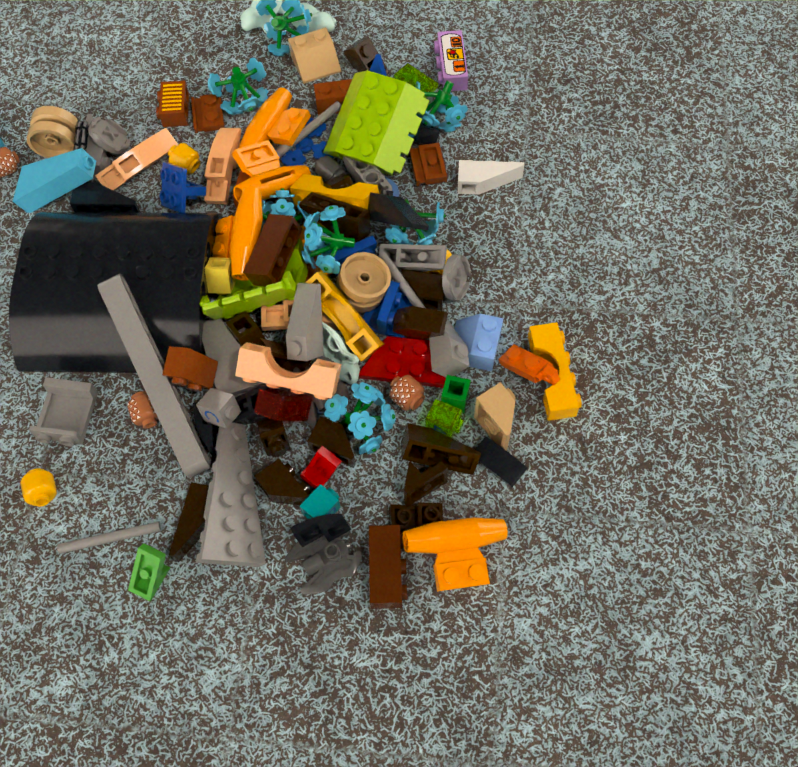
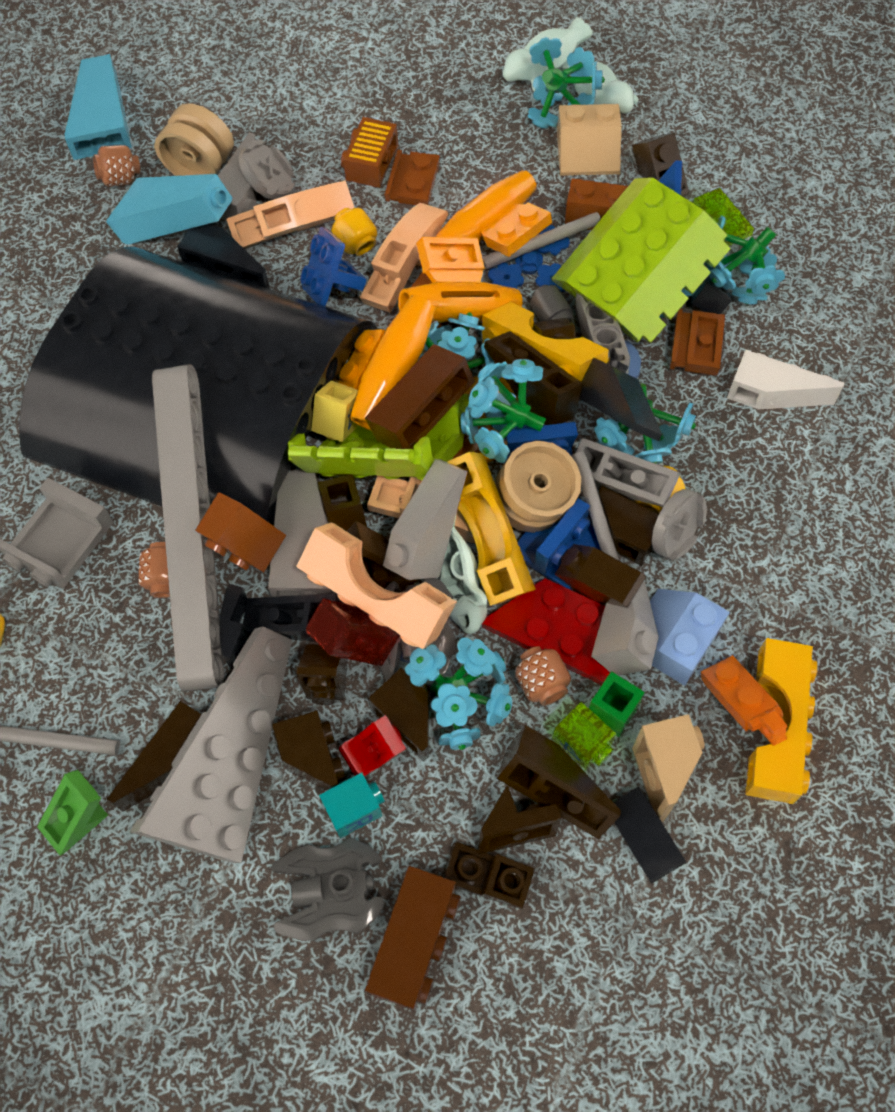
camera: 20 degrees right, 0 degrees up
(81, 135) = (227, 159): black axle -> none
(218, 408) = (259, 604): light grey brick -> none
(239, 85) = (468, 151): medium azure plant -> none
(327, 525) = (347, 842): black slope -> none
(451, 59) = (786, 200): brick -> none
(457, 544) = (531, 944): light orange plate -> none

